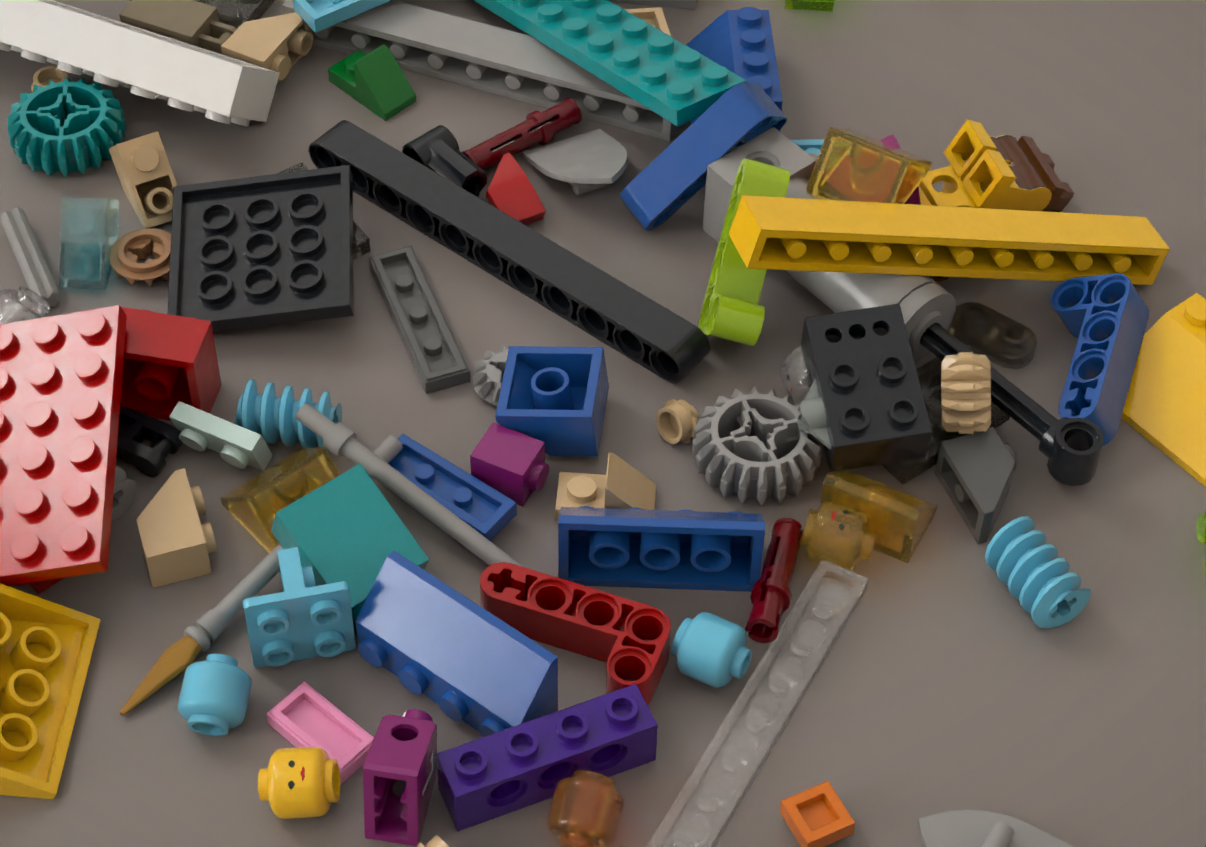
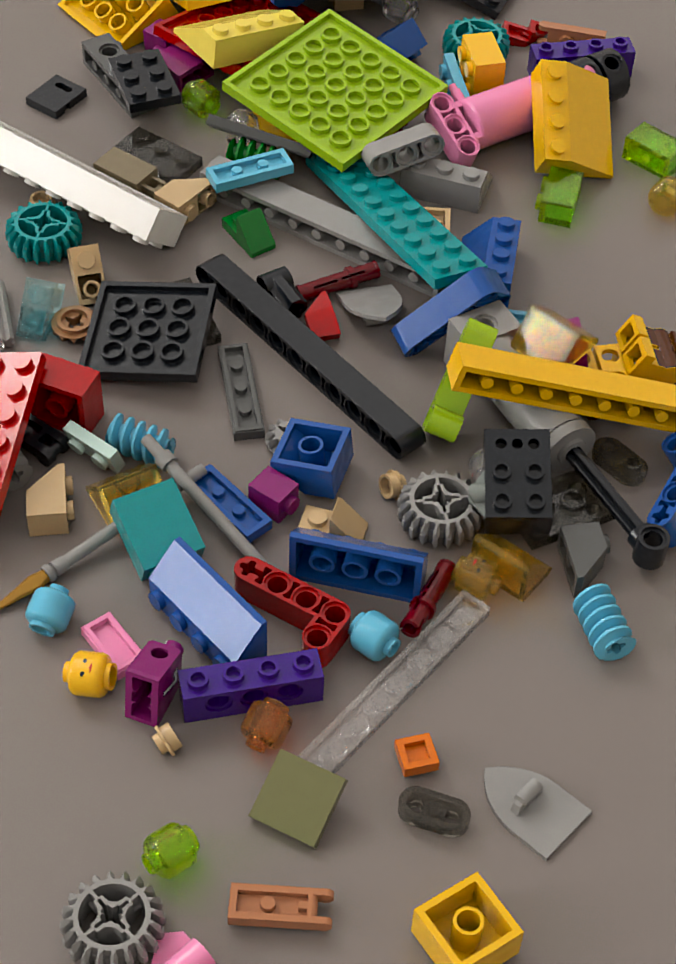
camera: 10 degrees right, 0 degrees up
(300, 620) = (114, 570): medium azure bracket -> none
(966, 393) = (584, 496): tan gear -> none

